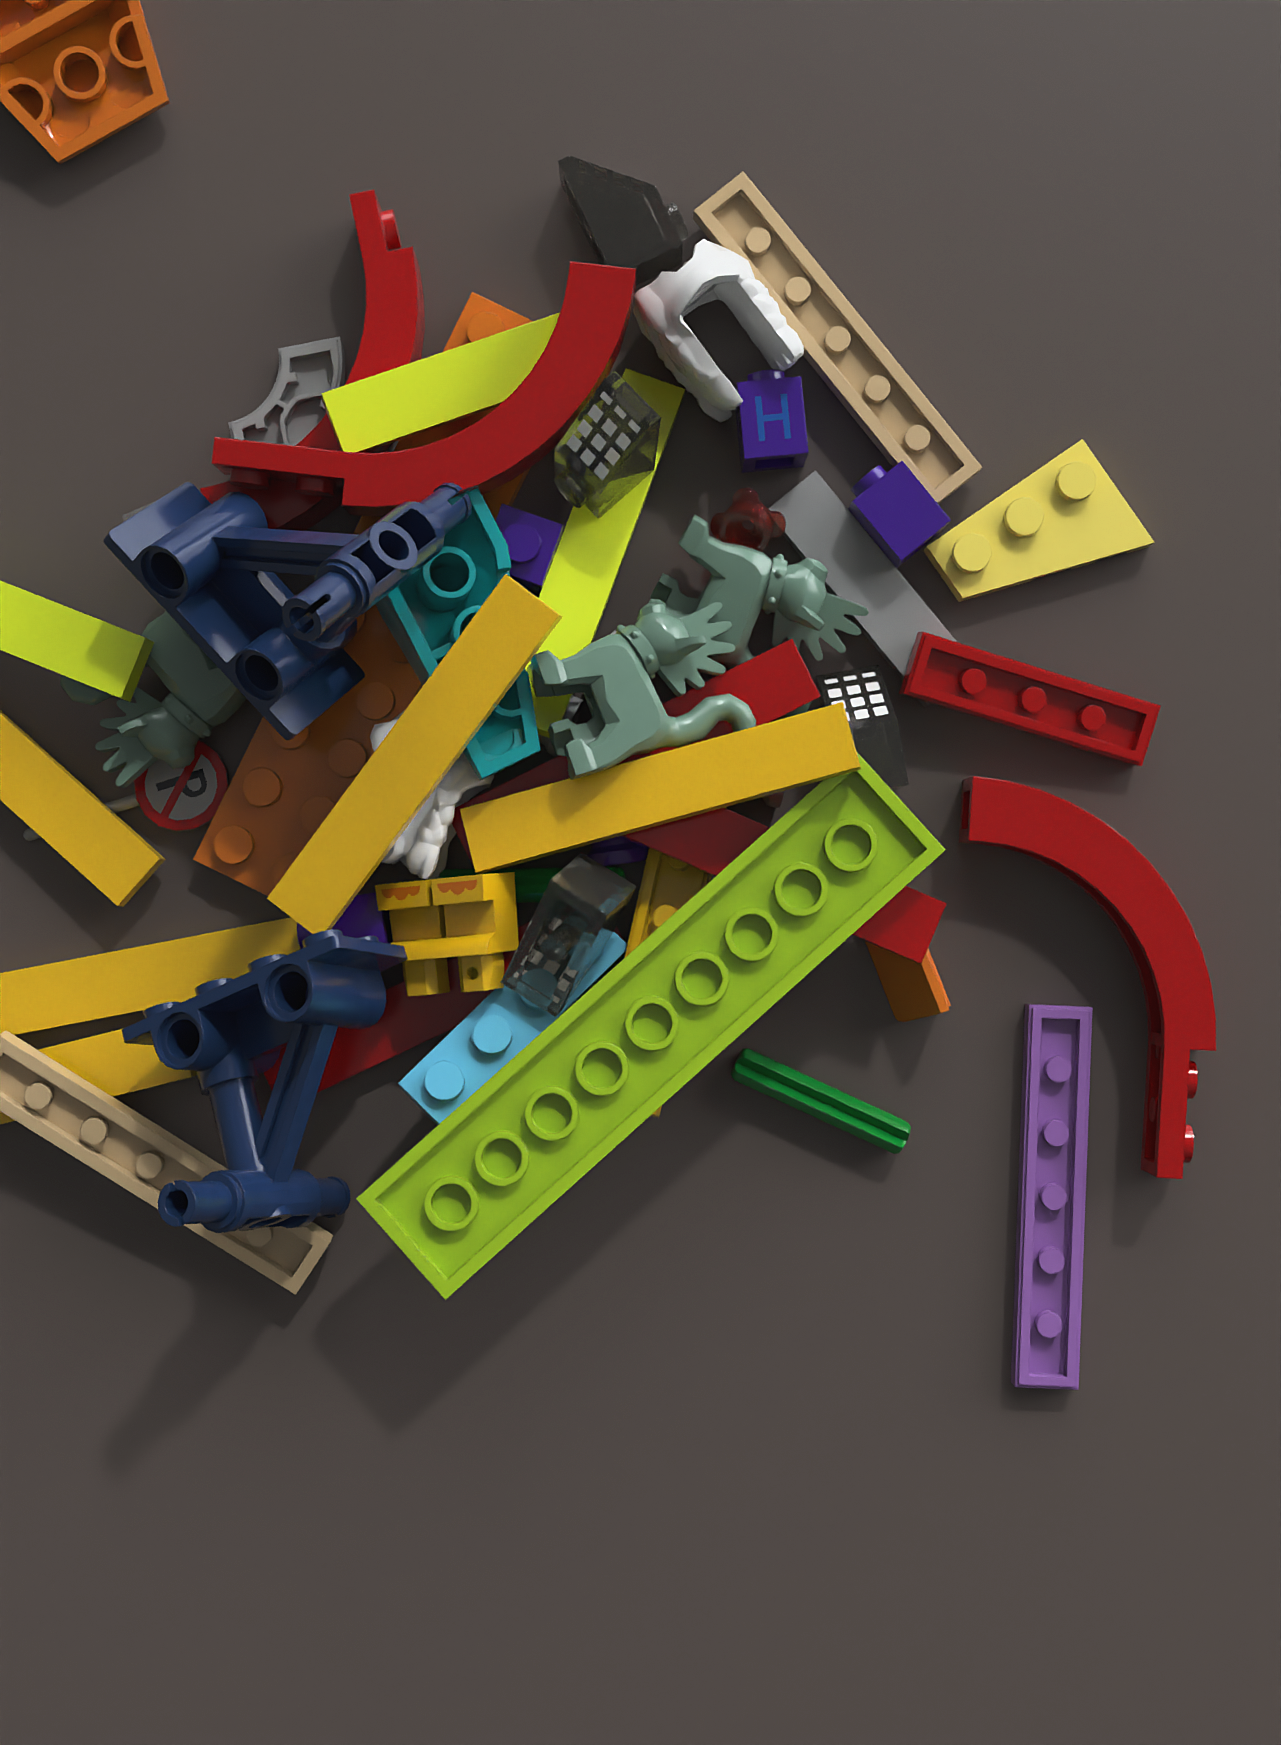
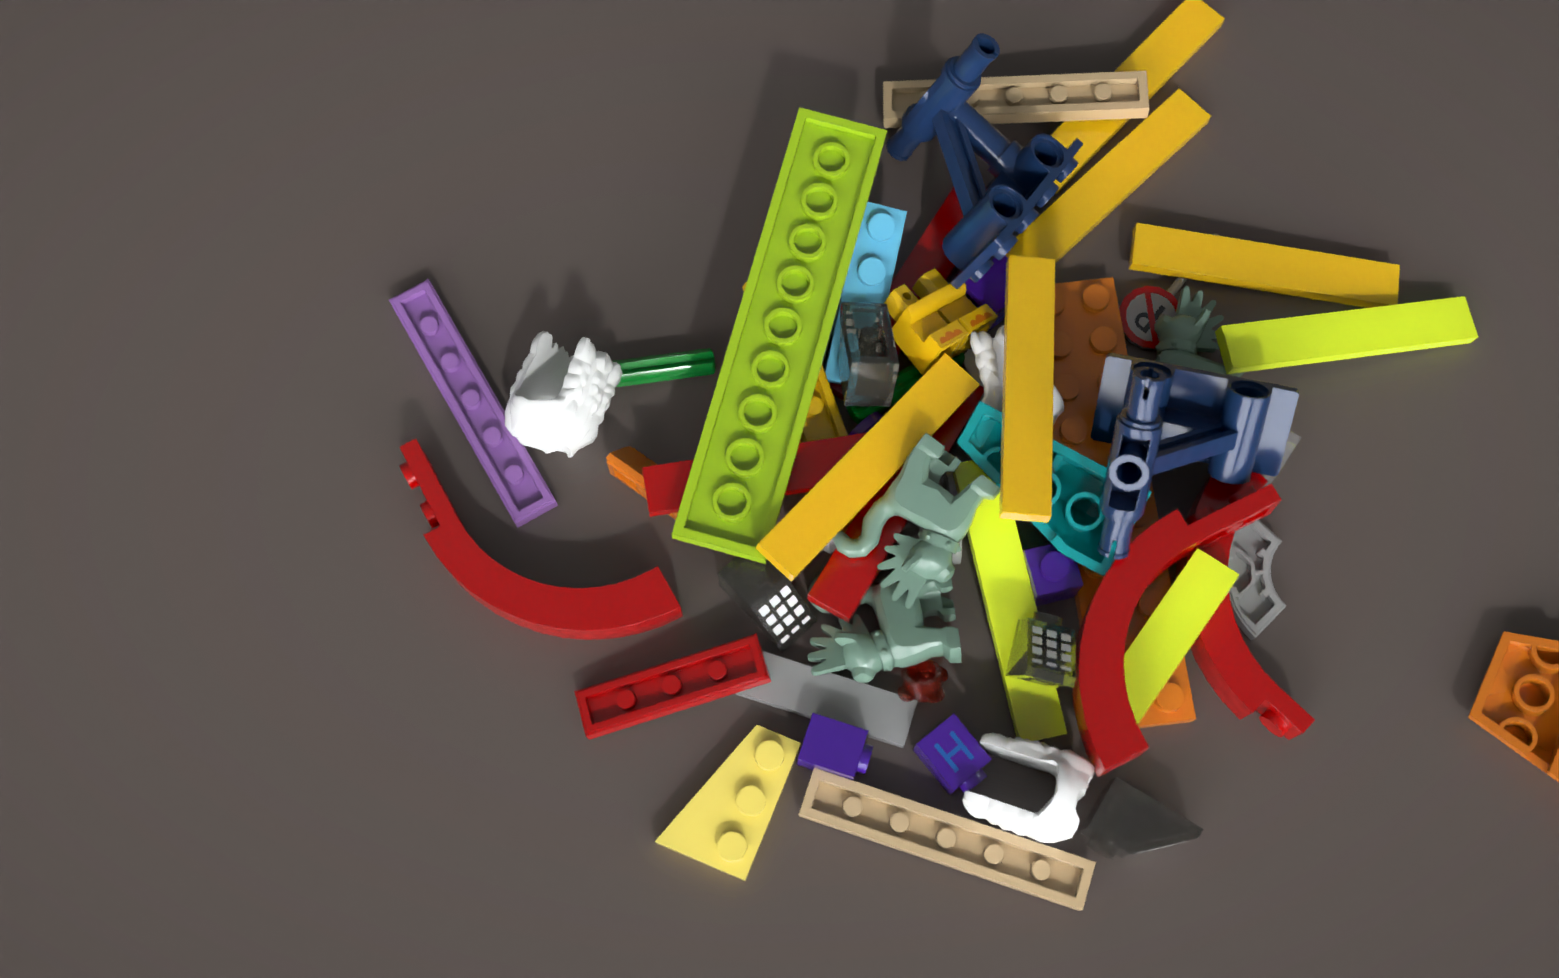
camera: 150 degrees right, 15 degrees down
(954, 1123) = (561, 397): none -> white piece

